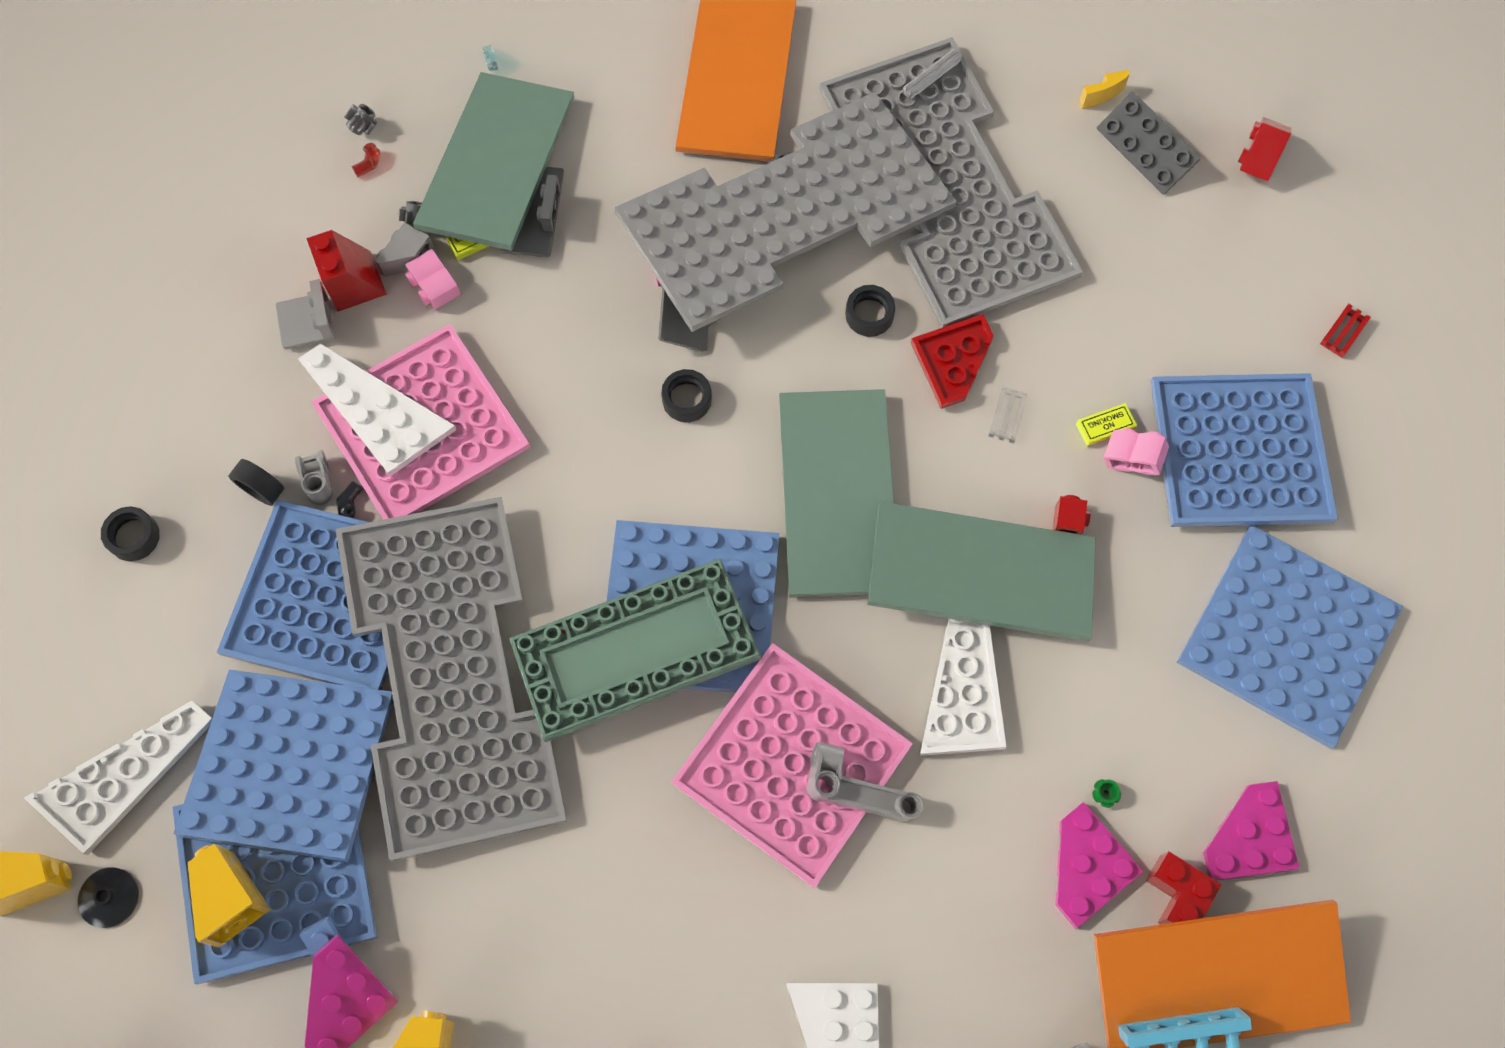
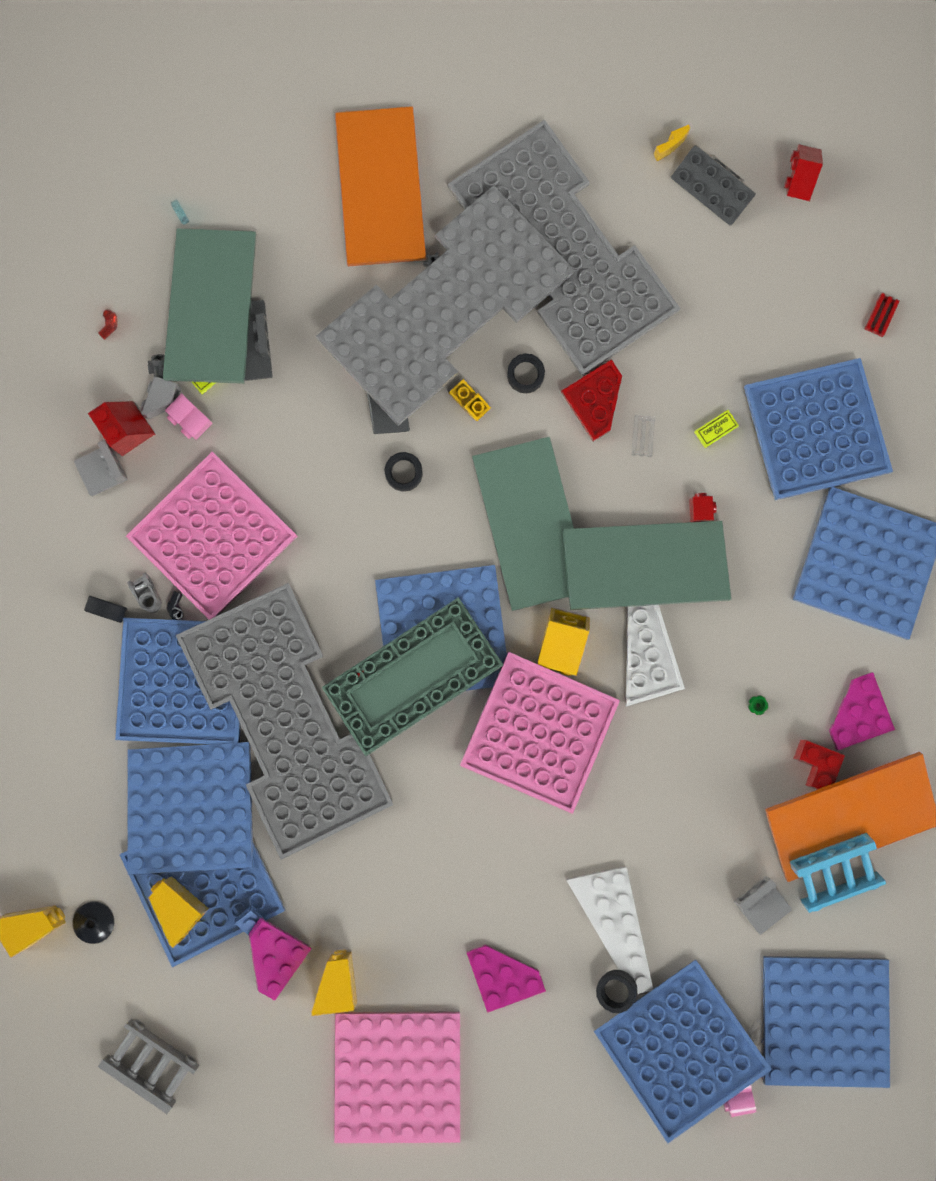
camera: 15 degrees left, 15 degrees up
(109, 785) = (68, 850): white wing -> none
(117, 520) = (8, 665): black tyre -> none
(360, 119) = (93, 290): dark grey gear -> none
(381, 416) = (184, 539): white wing -> none
(790, 328) = (469, 400): none -> yellow slope
(850, 649) = (564, 641): none -> yellow slope
(854, 793) = (565, 730): light grey piece -> none
(932, 73) = (535, 158): light grey axle -> none
(1089, 866) = (754, 757): dark pink plate -> none
(1136, 452) = (742, 448): bright pink brick -> none

